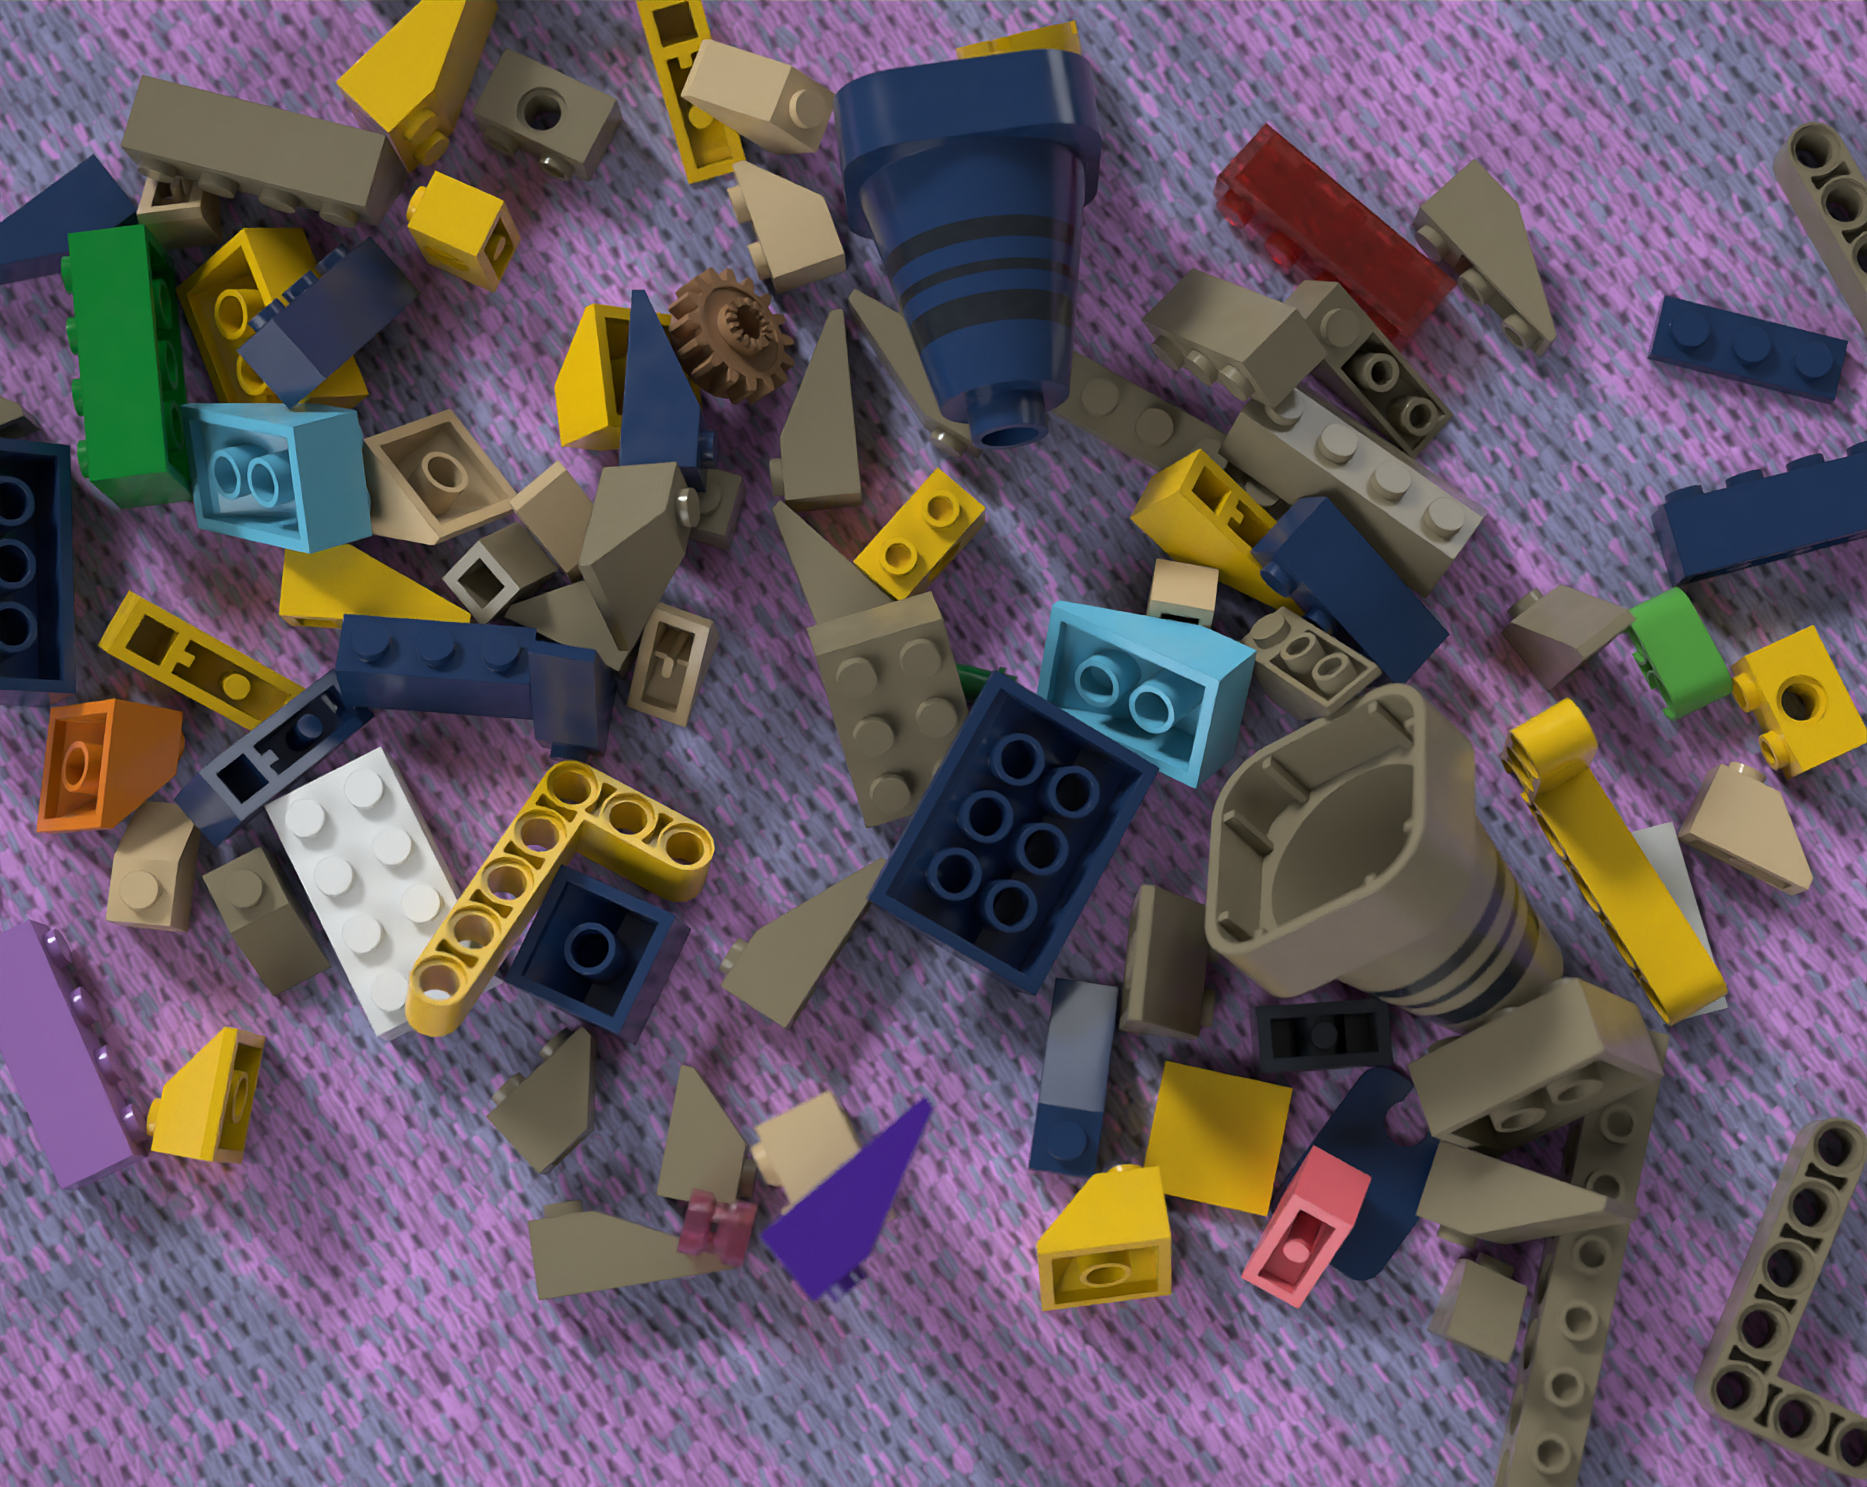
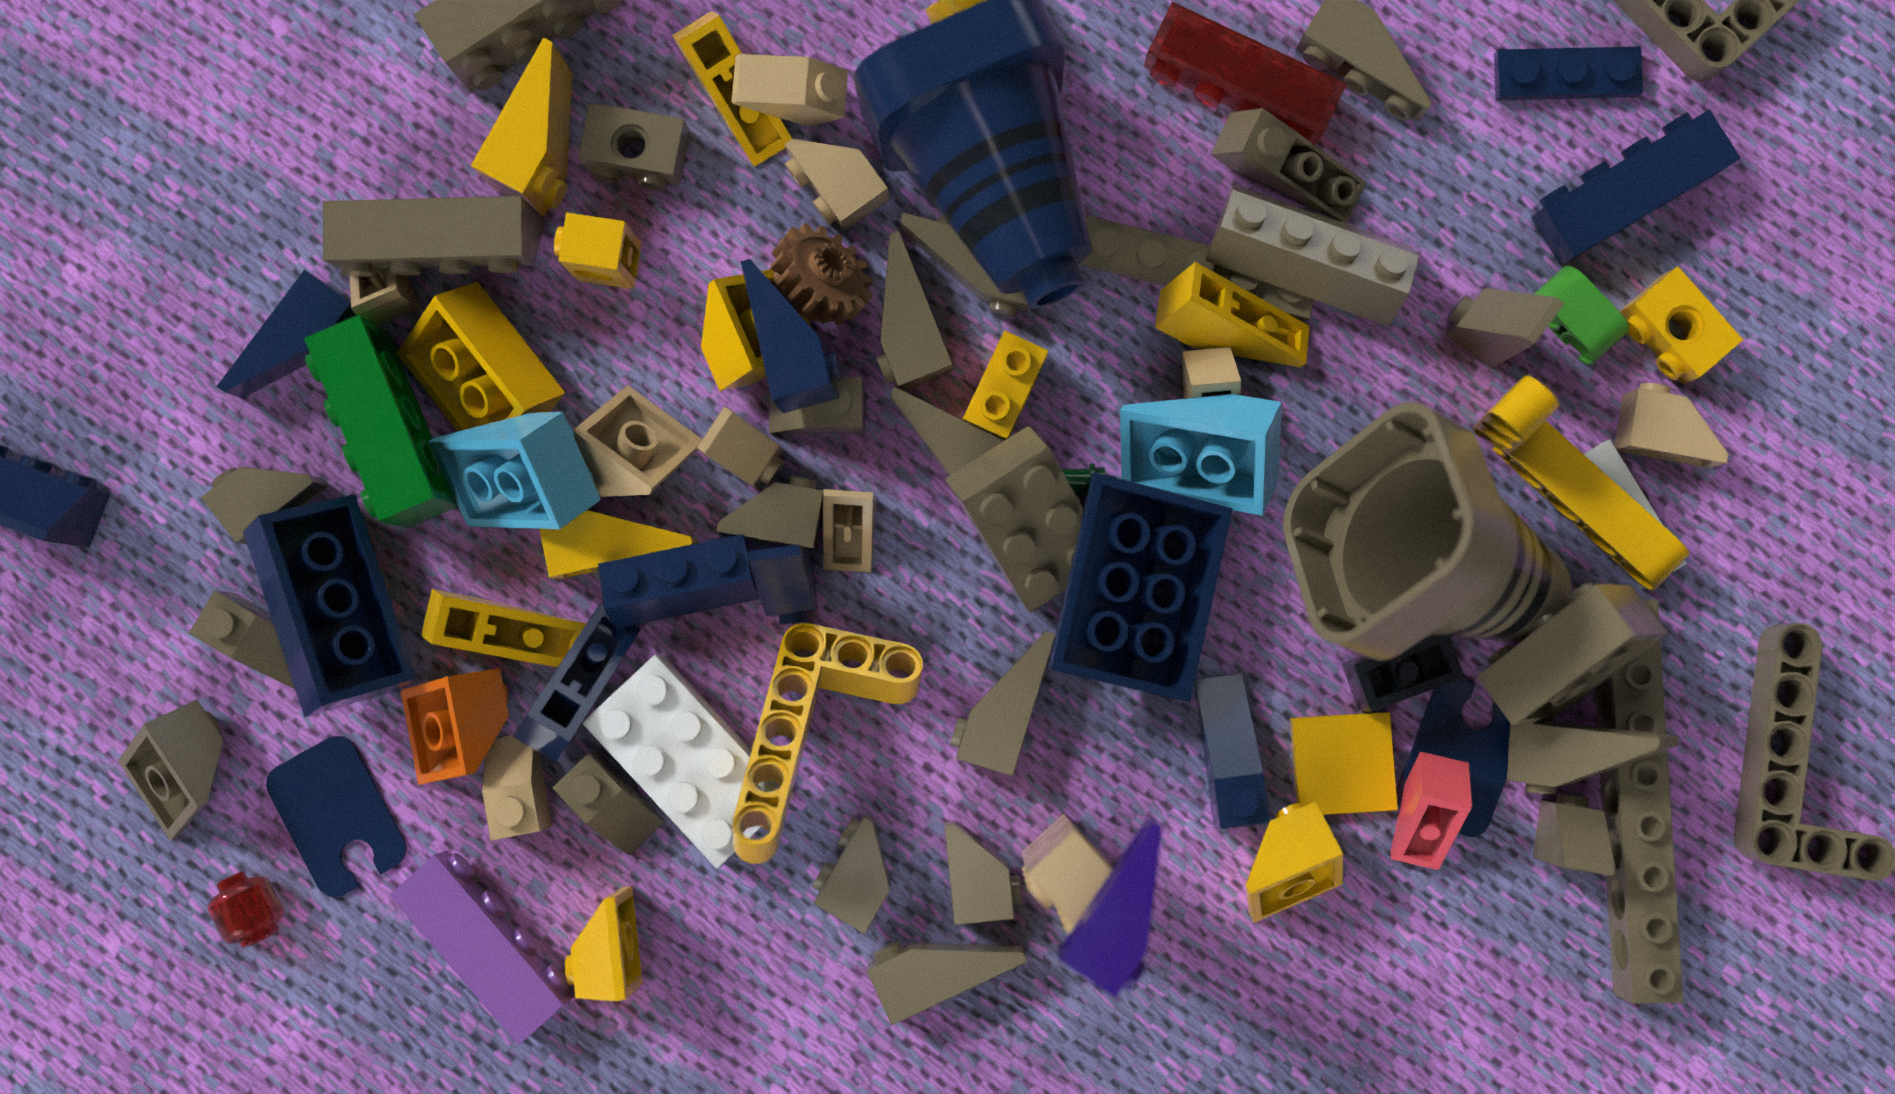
camera: 10 degrees left, 5 degrees up
(326, 319) = (518, 348): dark blue brick -> none
(499, 572) = (703, 499): dark tan brick -> none
(598, 954) = (858, 761): dark blue slope -> none
(636, 543) = (802, 452): dark tan slope -> none
(732, 1233) = (1019, 941): clear pink wheel -> none
(1166, 967) = (1276, 654): dark tan slope -> none
(1233, 338) = (1197, 172): dark tan brick -> none
(1304, 666) = (1322, 404): dark tan slope -> none
(1348, 589) = (1332, 339): dark blue brick -> none

